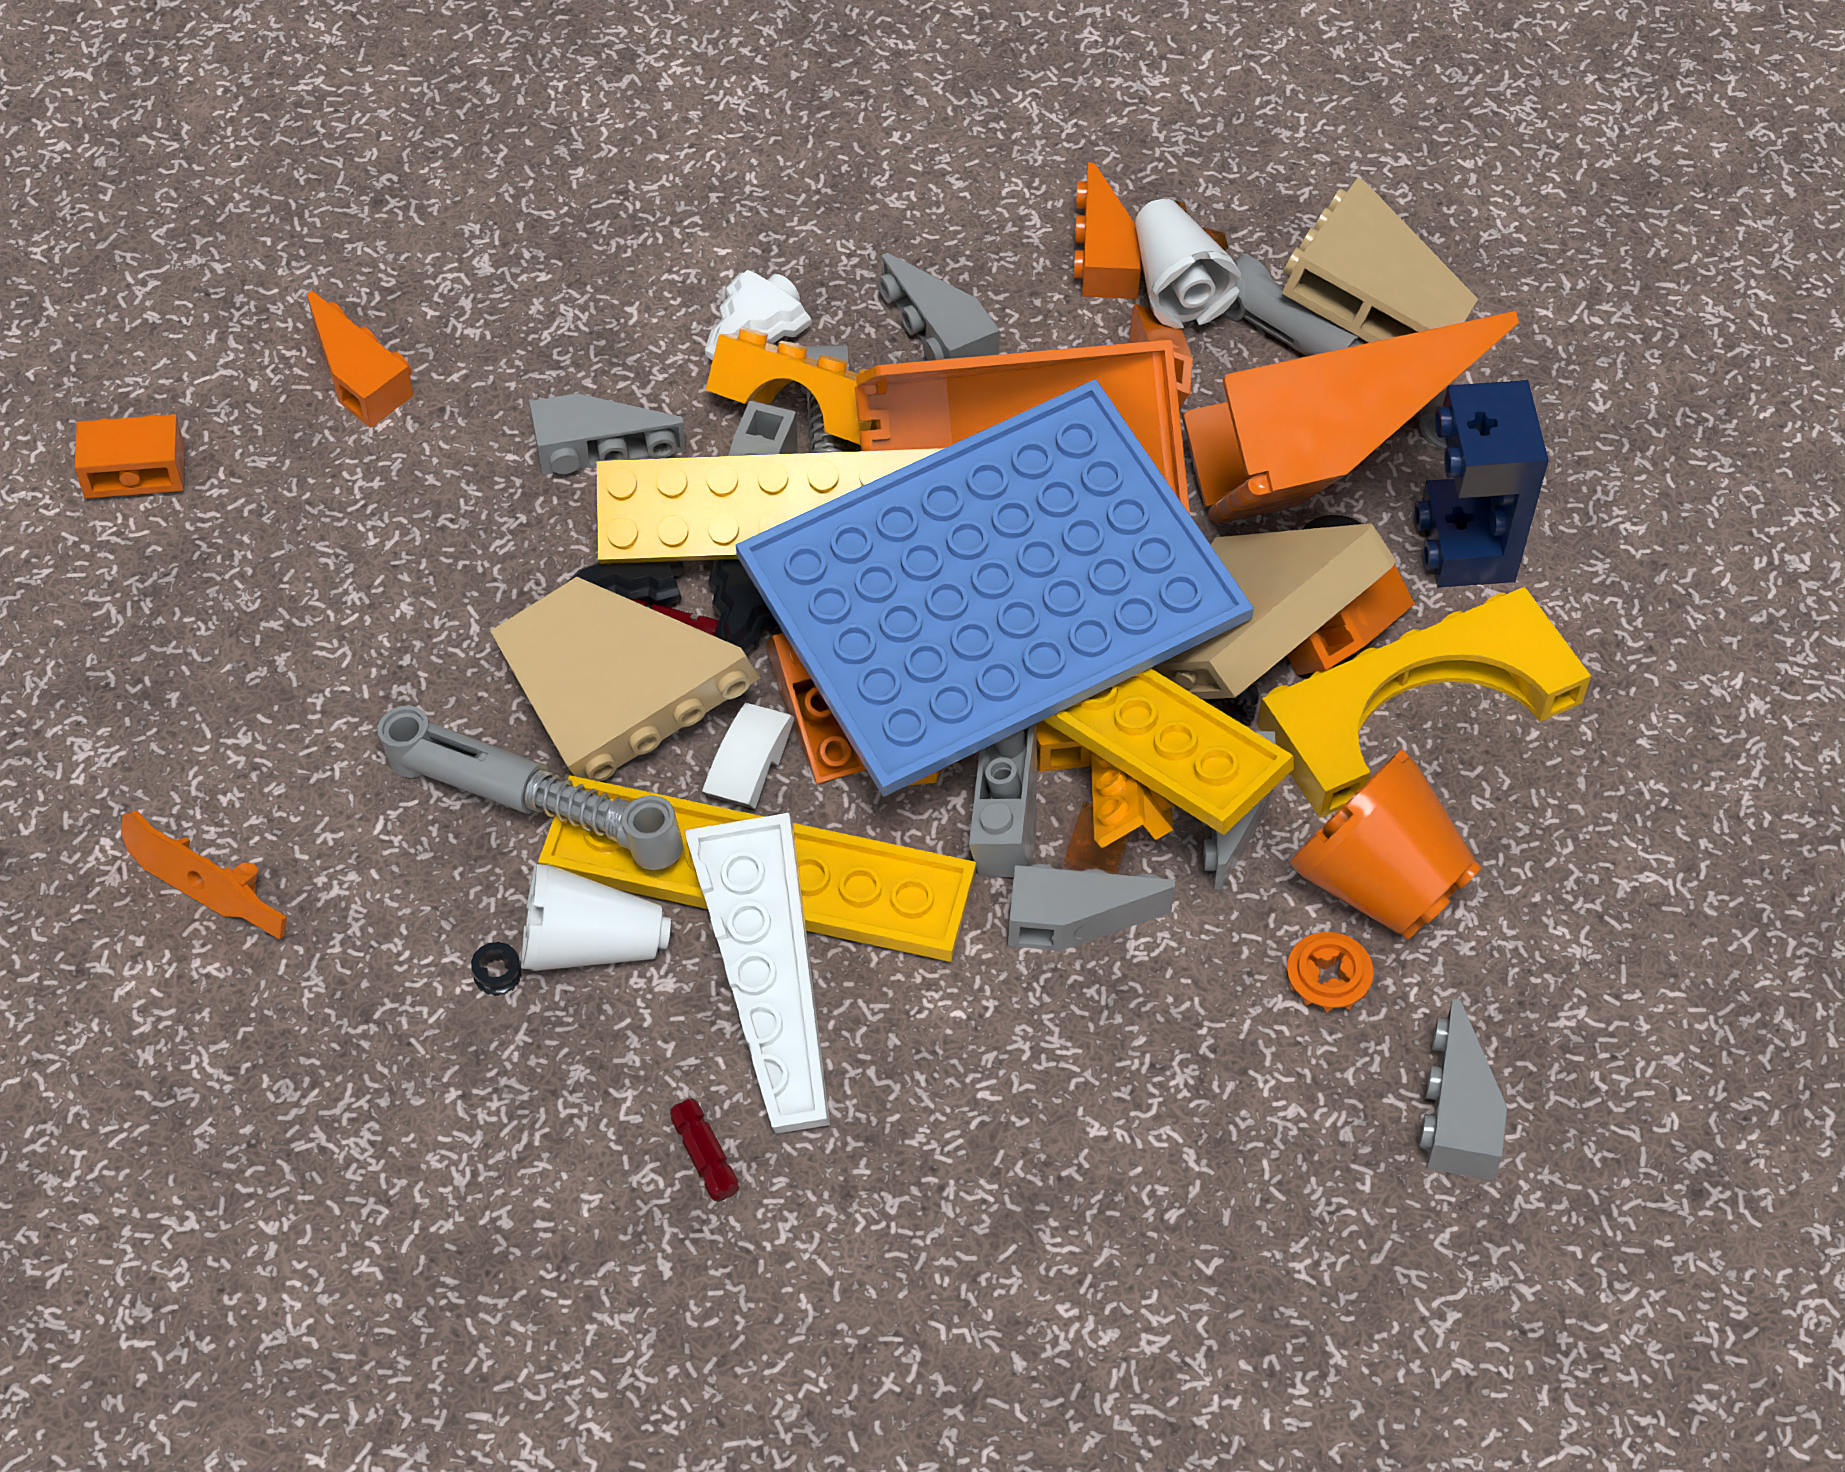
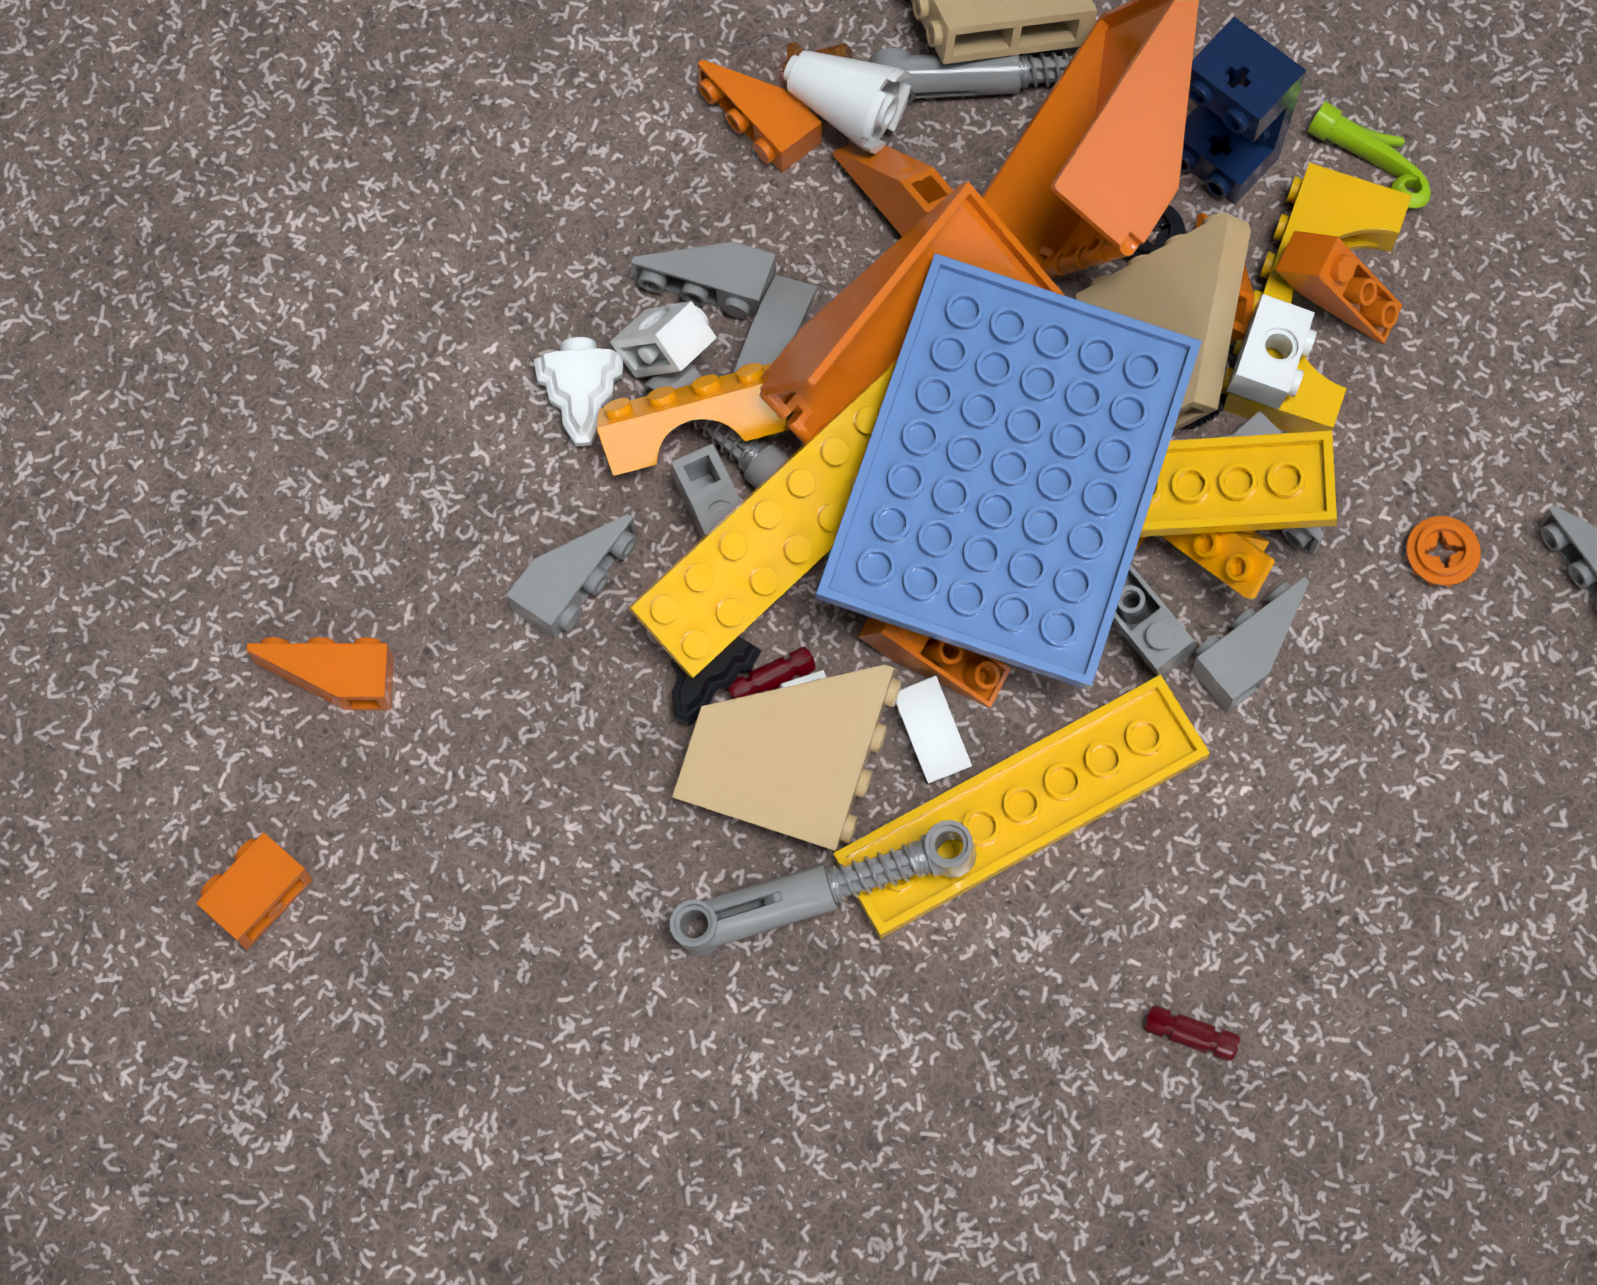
camera: 40 degrees left, 15 degrees up
(222, 890) = (661, 1155): orange piece -> none
(503, 983) = (929, 1018): black bush -> none
(587, 923) = (961, 953): white cone -> none
(738, 605) = (812, 621): black rock -> none
(760, 926) = (1079, 848): white wing -> none
(845, 318) = (664, 339): none -> white brick
(1087, 853) = (1212, 594): clear orange bracket -> none
(1339, 663) = (1278, 327): none -> white brick
(1390, 850) = (1410, 435): orange cone -> none
(1450, 693) = (1339, 283): none -> orange slope
(1585, 584) = (1374, 148): none -> lime plant

